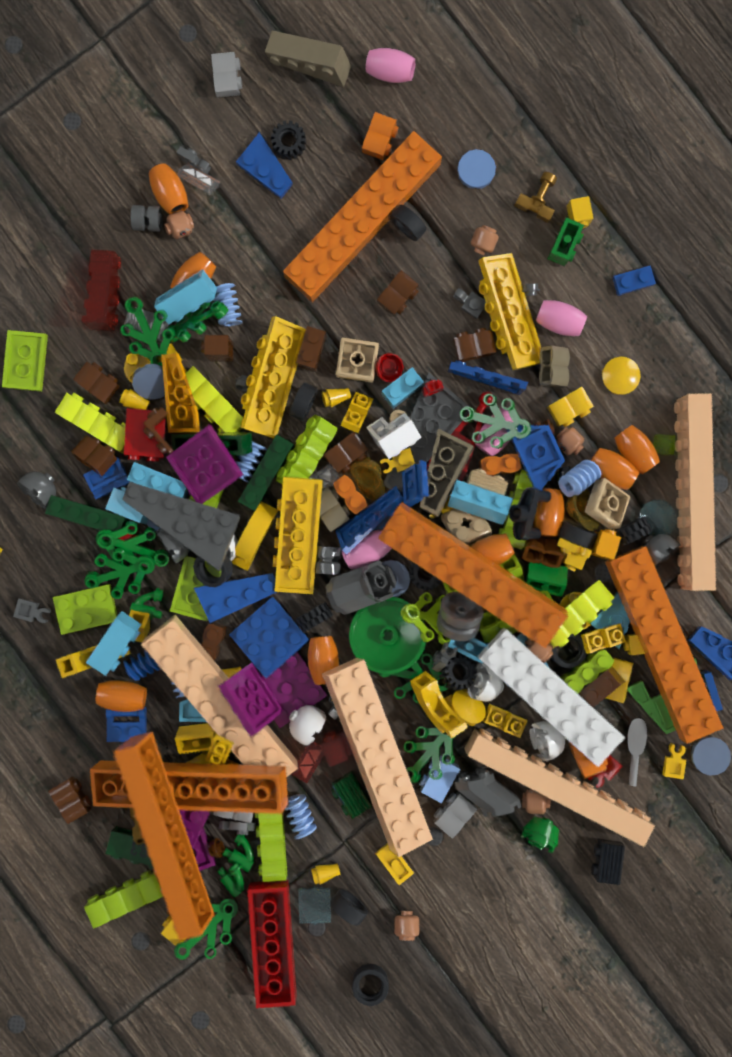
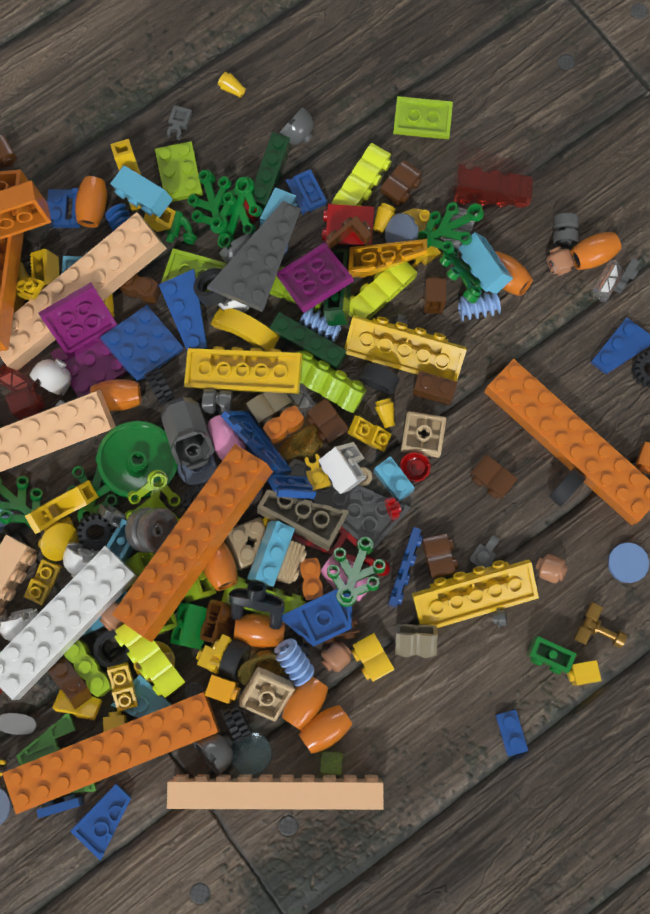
camera: 90 degrees right, 10 degrees down
(94, 455) = (328, 178): reddish brown brick -> none
(156, 480) = (302, 236): medium azure brick -> none
(561, 318) = (468, 649): bright pink piece -> none
(621, 375) = (407, 715): yellow dish -> none

